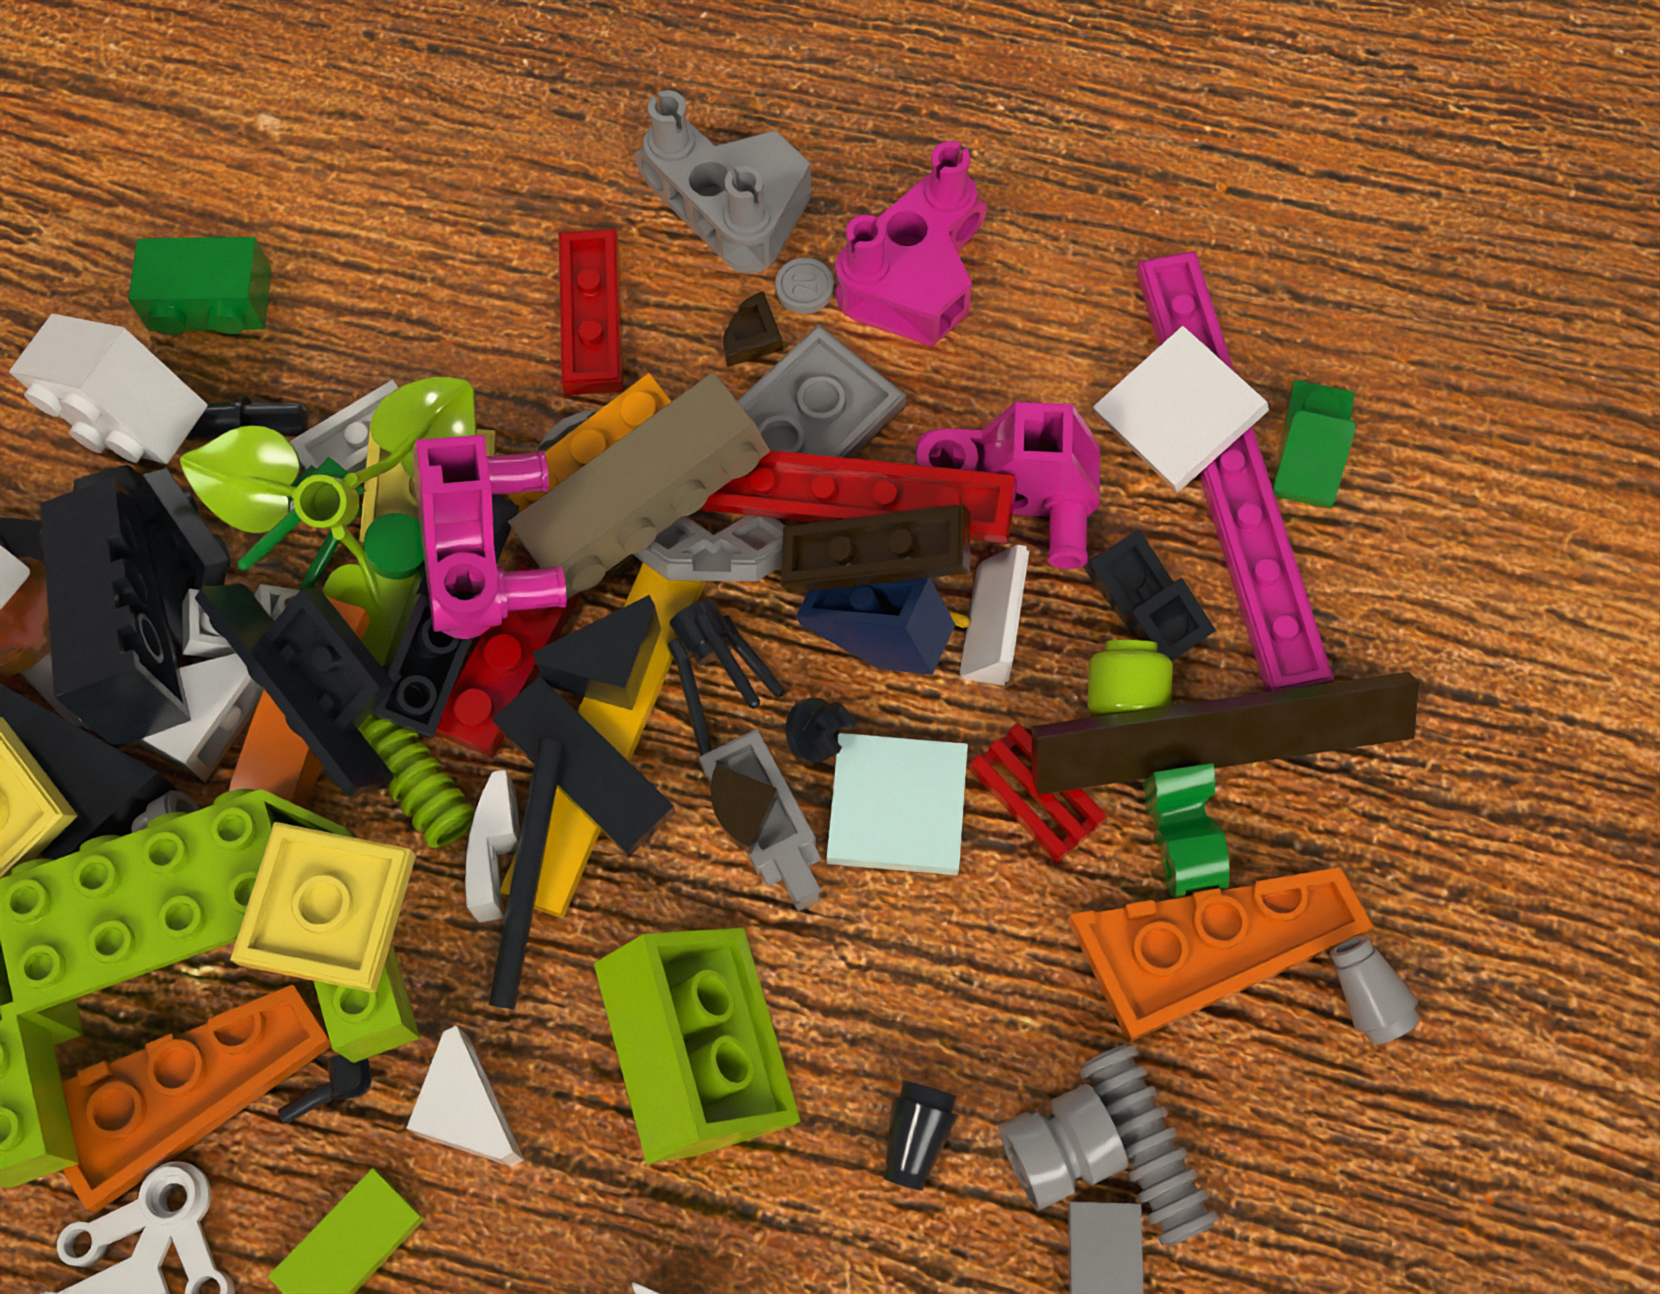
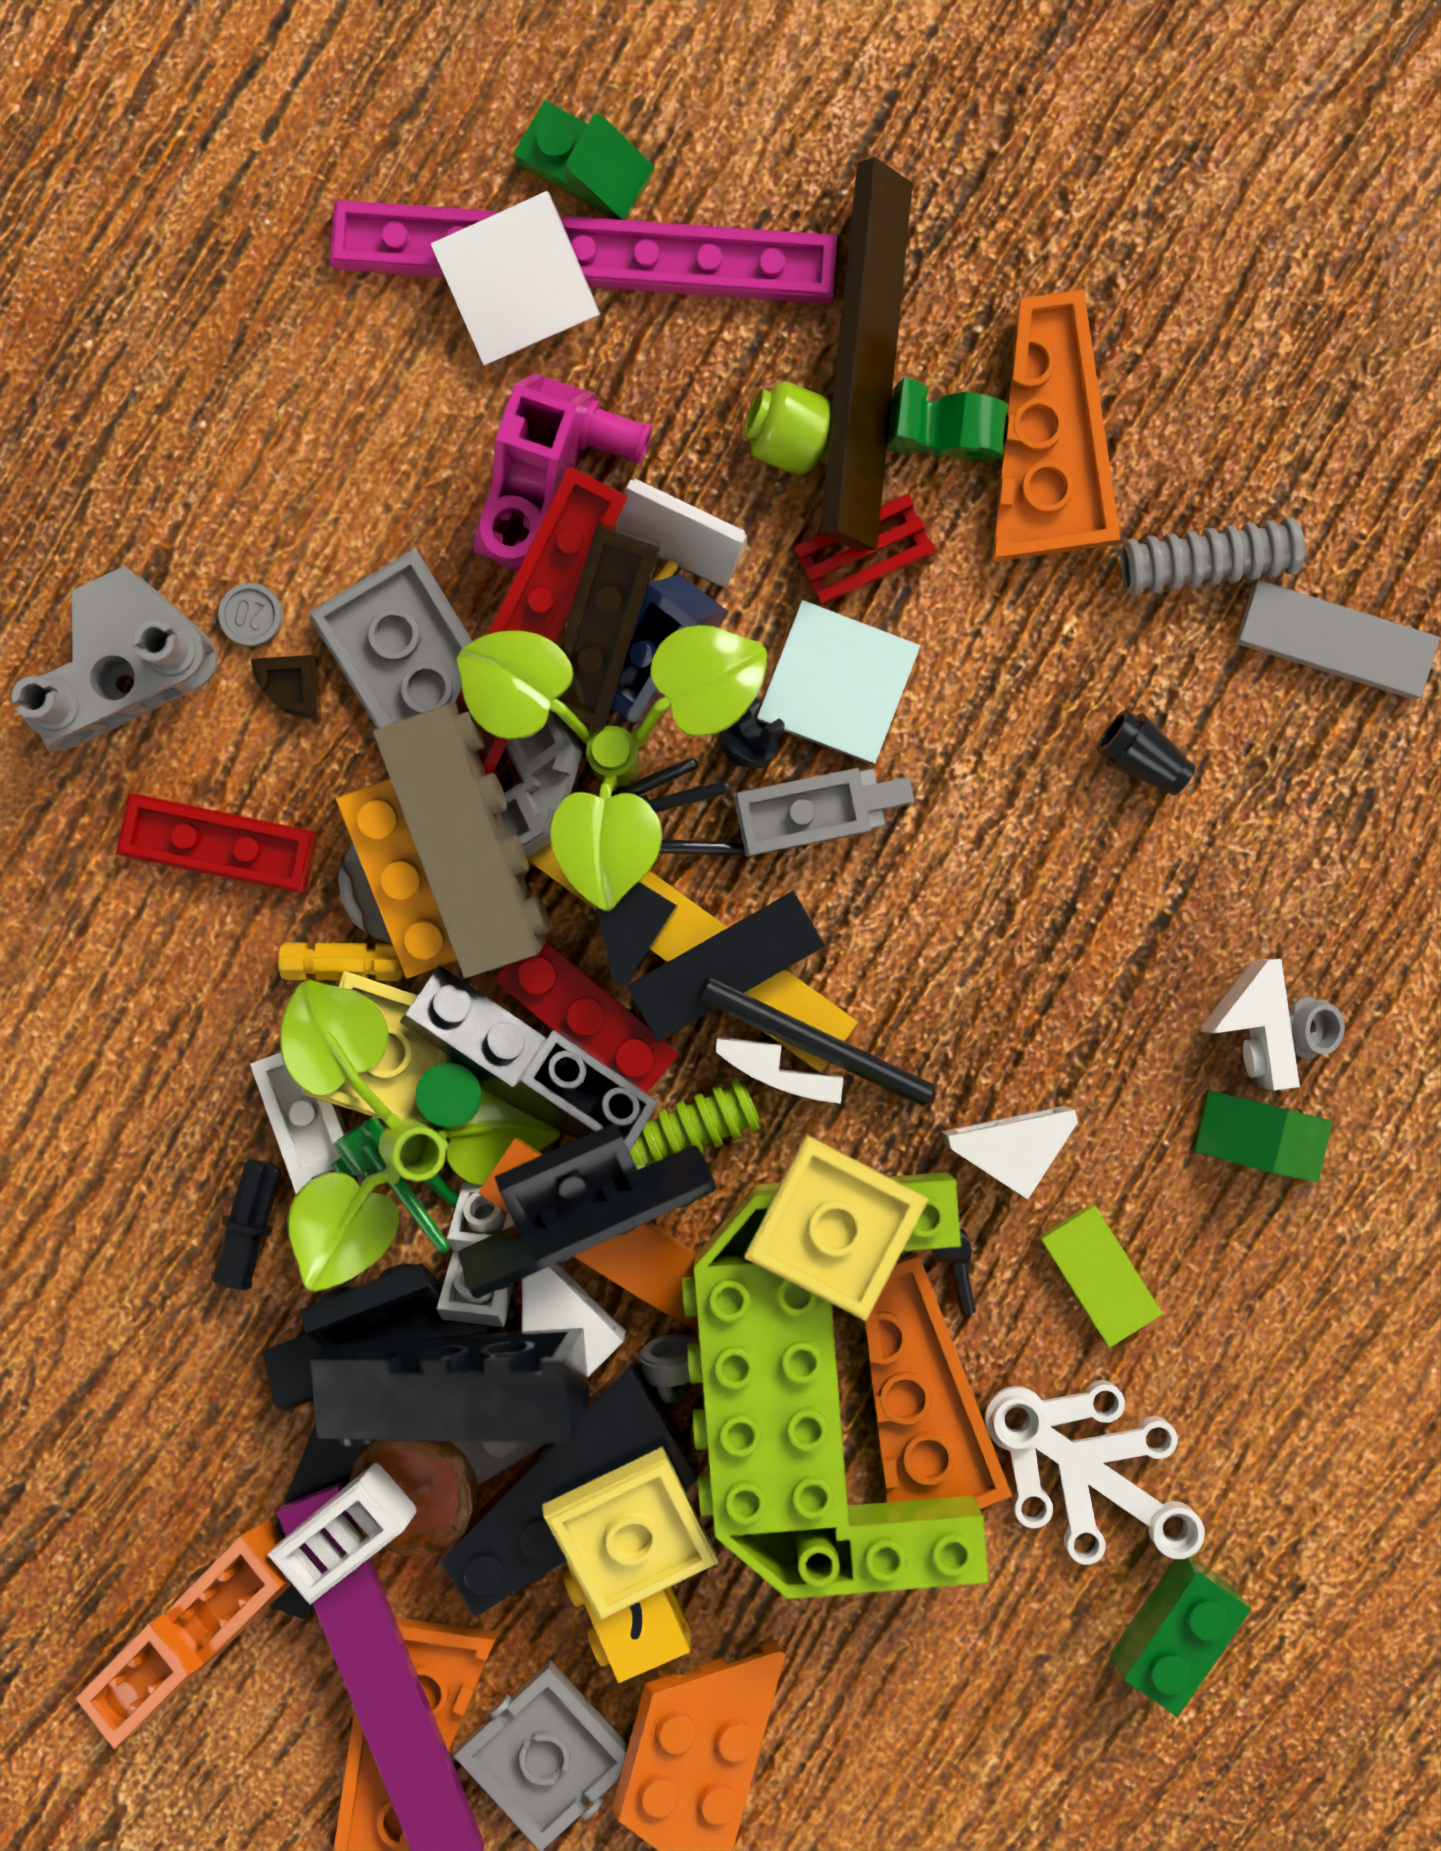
camera: 75 degrees left, 20 degrees up
(107, 389) = (195, 1355): white brick -> none
(200, 284) = (74, 1243): green brick -> none
(456, 528) = (492, 1023): dark pink piece -> none
(498, 401) = (332, 959): none -> yellow axle
(694, 1042) = (1014, 927): lime slope -> none
(741, 806) = (812, 828): dark brown tile -> none
(845, 646) = (608, 839): none -> lime plant
(905, 264) = (295, 485): dark pink piece -> none
(1066, 1145) = (1197, 630): light grey wheel -> none
(1147, 597) = (702, 381): black slope -> none
(1373, 991) = (1141, 311): light grey cone -> none

